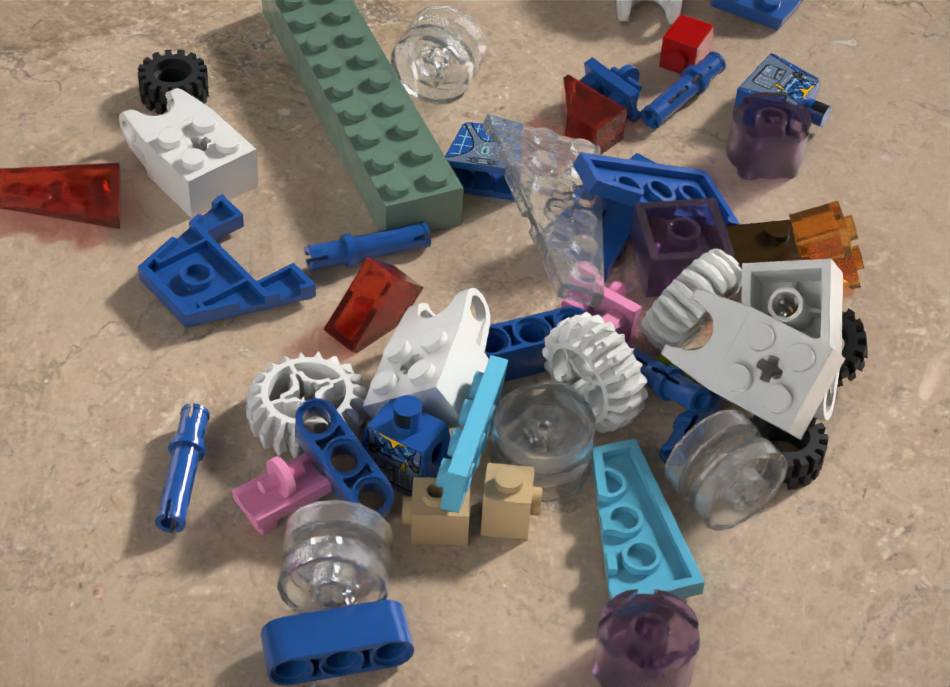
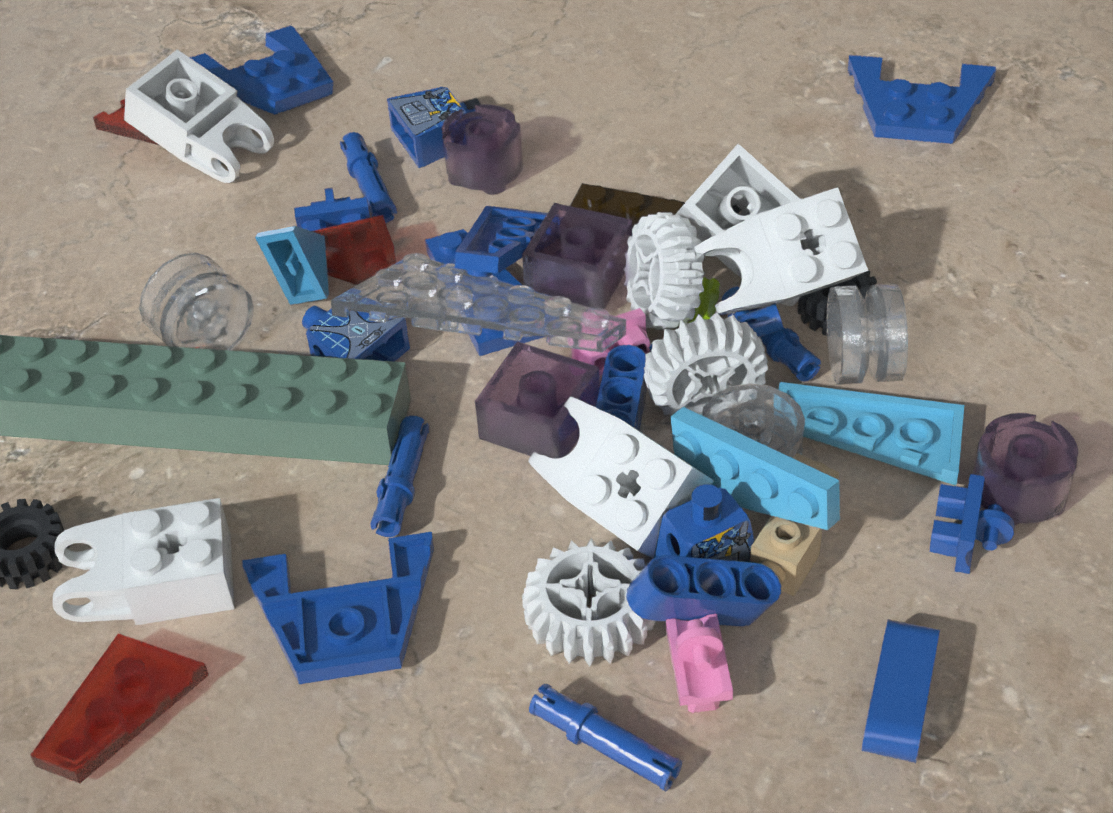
camera: 55 degrees left, 0 degrees up
(334, 557) = (828, 642): clear wheel -> none
(372, 305) = (491, 502): clear red slope -> none
(497, 270) = (527, 398): none -> clear purple brick
(534, 85) = (297, 262): none -> dark azure slope
(556, 635) = (987, 526): none -> blue hips
(685, 43) = (316, 150): red brick -> none
(828, 234) = (647, 163): clear orange slope -> none

